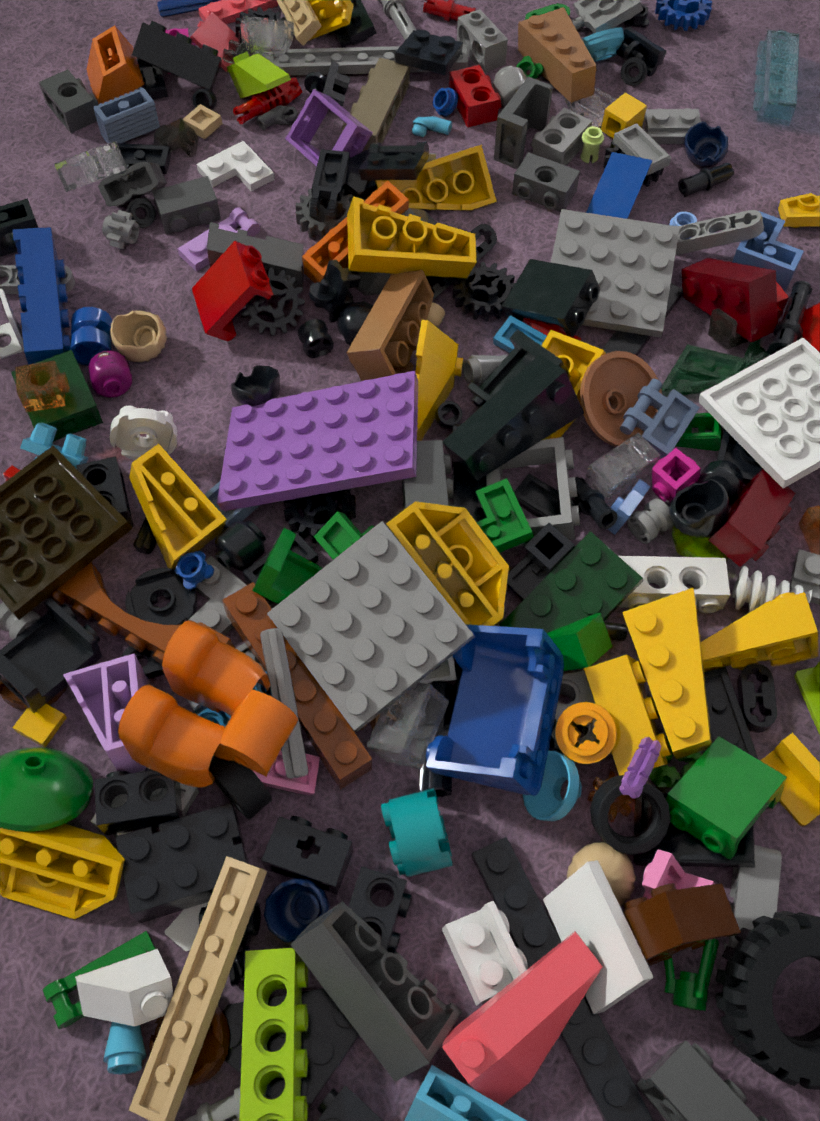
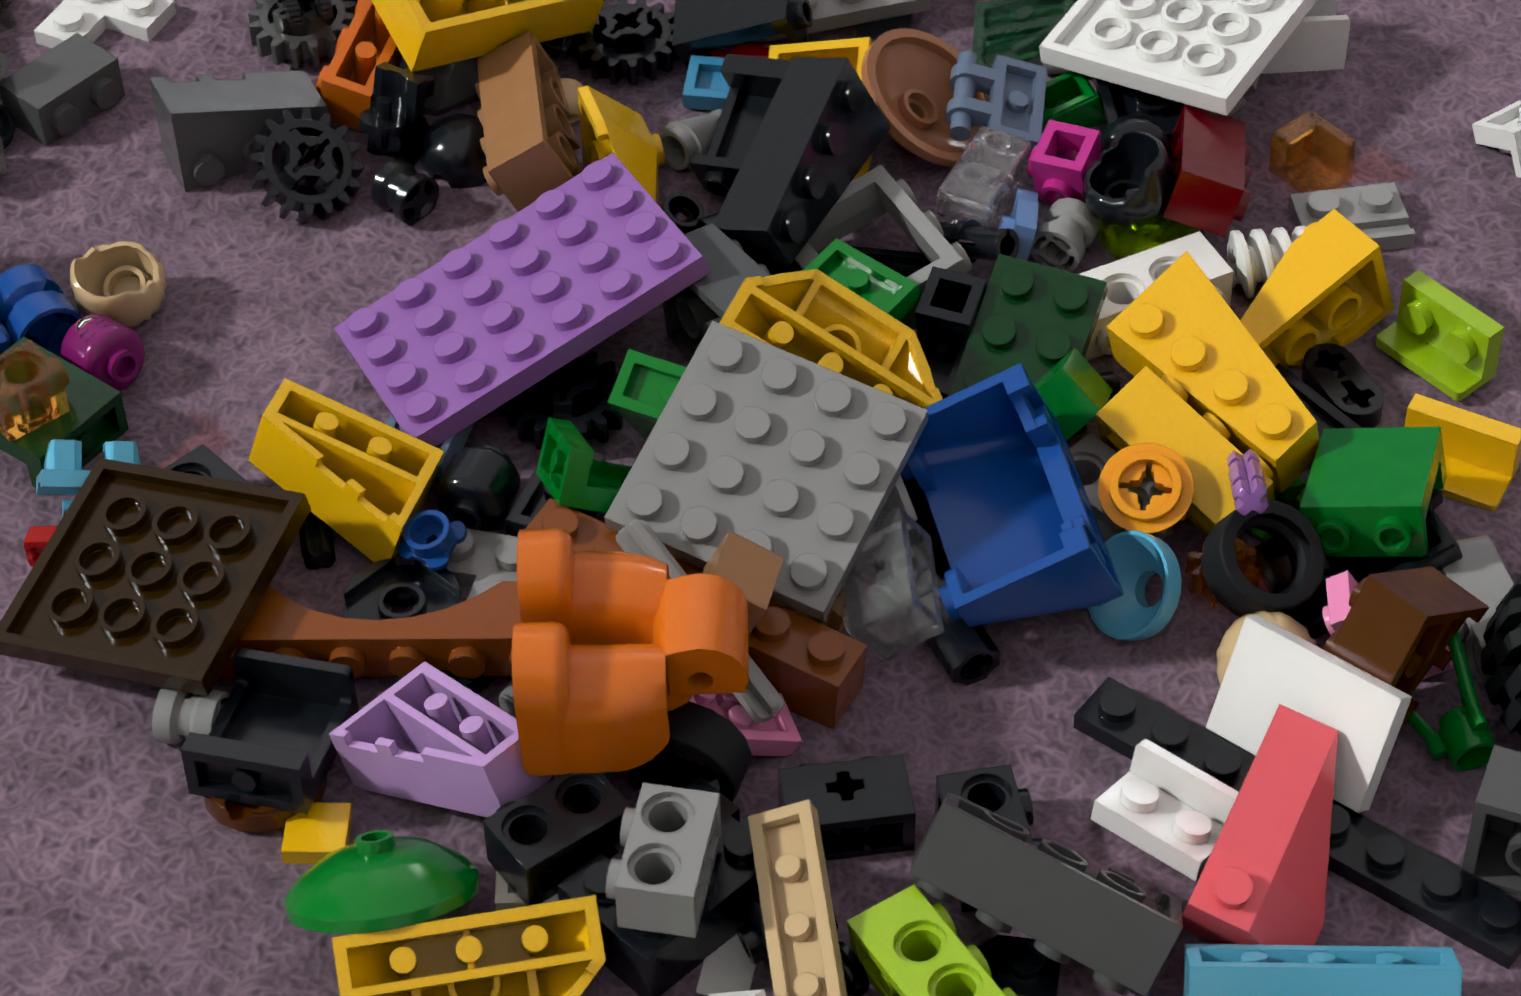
camera: 25 degrees left, 15 degrees down
(133, 421) = (207, 382): white plate -> none
(174, 870) = (665, 859): none -> light grey brick
(195, 250) = (134, 133): lavender plate -> none
(229, 287) = (233, 162): red panel -> none
(258, 387) = (357, 282): black hair -> none
(294, 907) = (871, 865): dark blue hair -> none
(308, 696) = (750, 568): none -> medium nougat brick
(419, 833) = (989, 705): teal brick -> none

